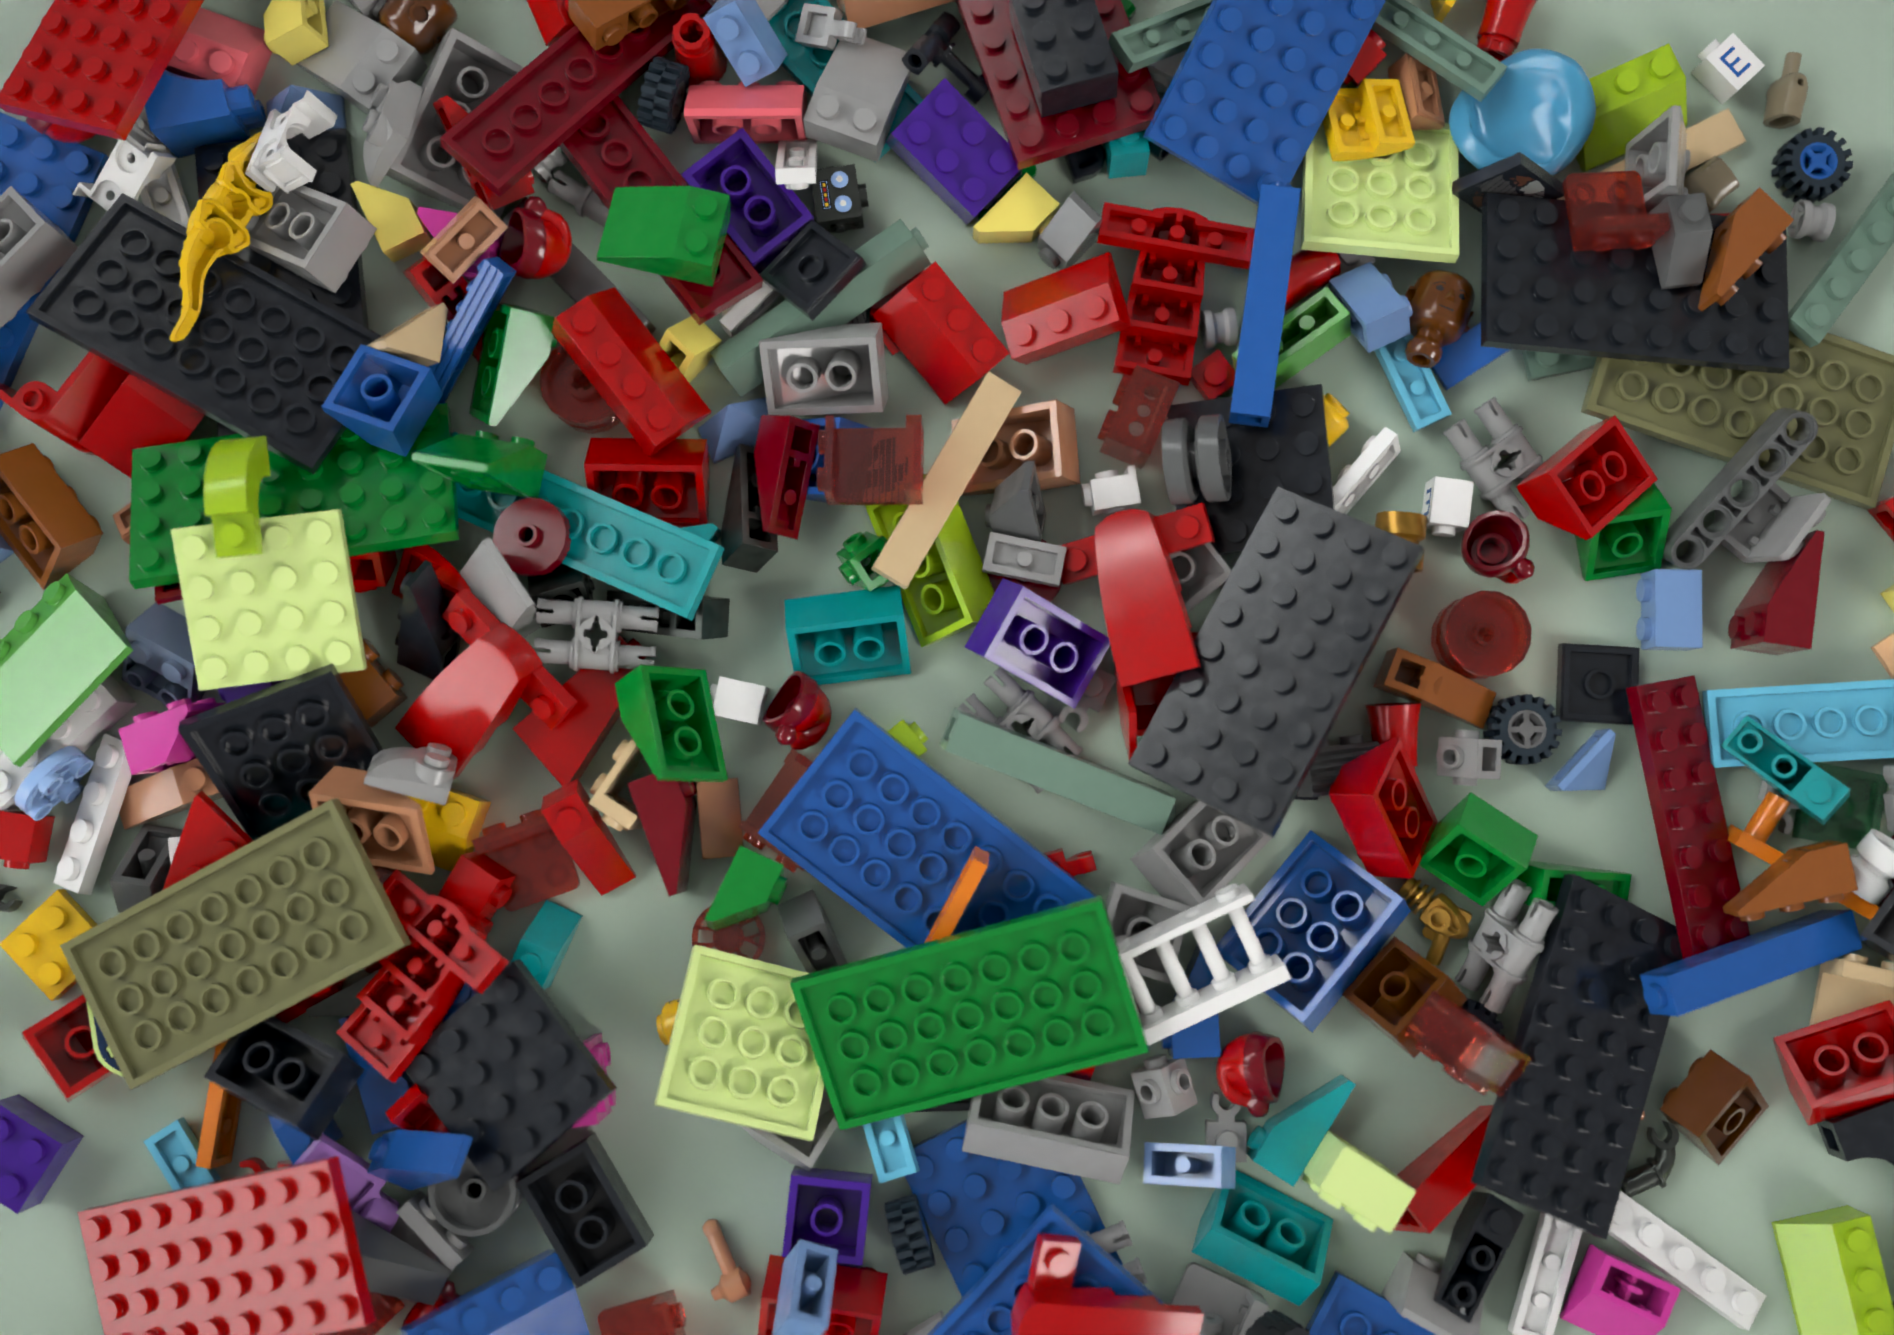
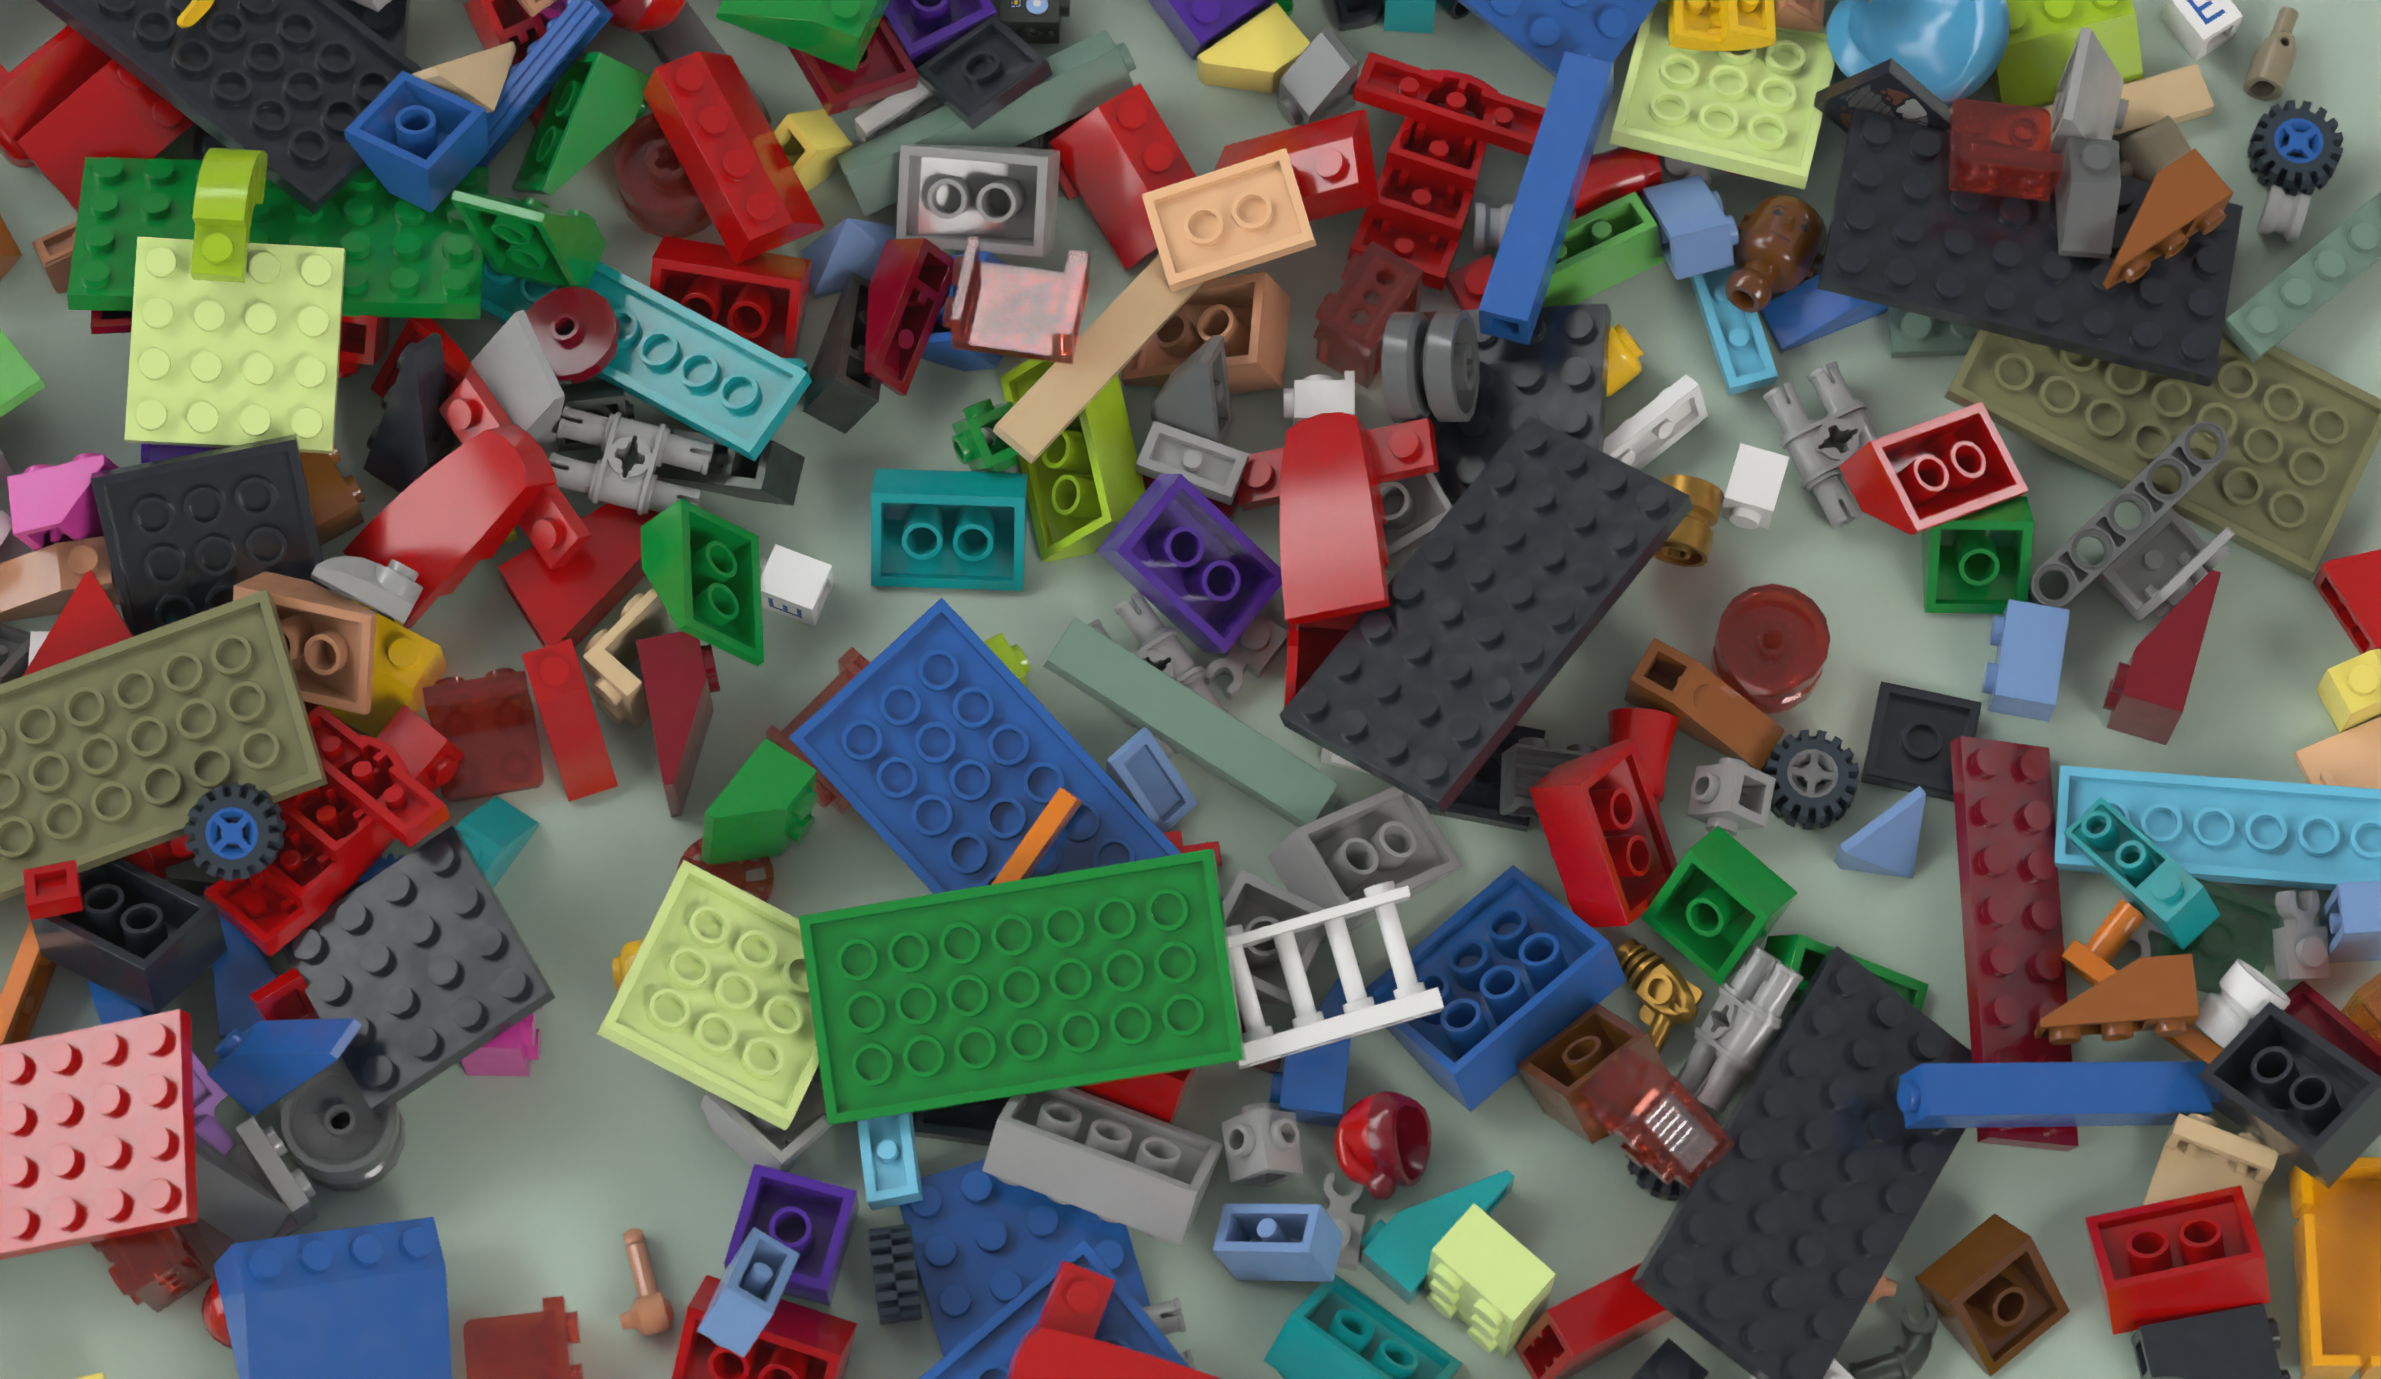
camera: 10 degrees right, 15 degrees down
(161, 656) = (72, 415): sand blue slope -> none
(216, 1062) = (53, 890): none -> red plate
(350, 1013) = (221, 844): none -> black wheel
(585, 1210) = (476, 1177): black brick -> none
(719, 818) = (740, 722): nougat slope -> none
(799, 712) = (871, 606): dark red piece -> none
(811, 933) = (831, 871): dark grey slope -> none
(1023, 365) = (1228, 220): none -> light nougat plate
(1034, 816) = (1151, 780): none -> medium blue slope
(1498, 547) = (1807, 541): dark red piece -> none

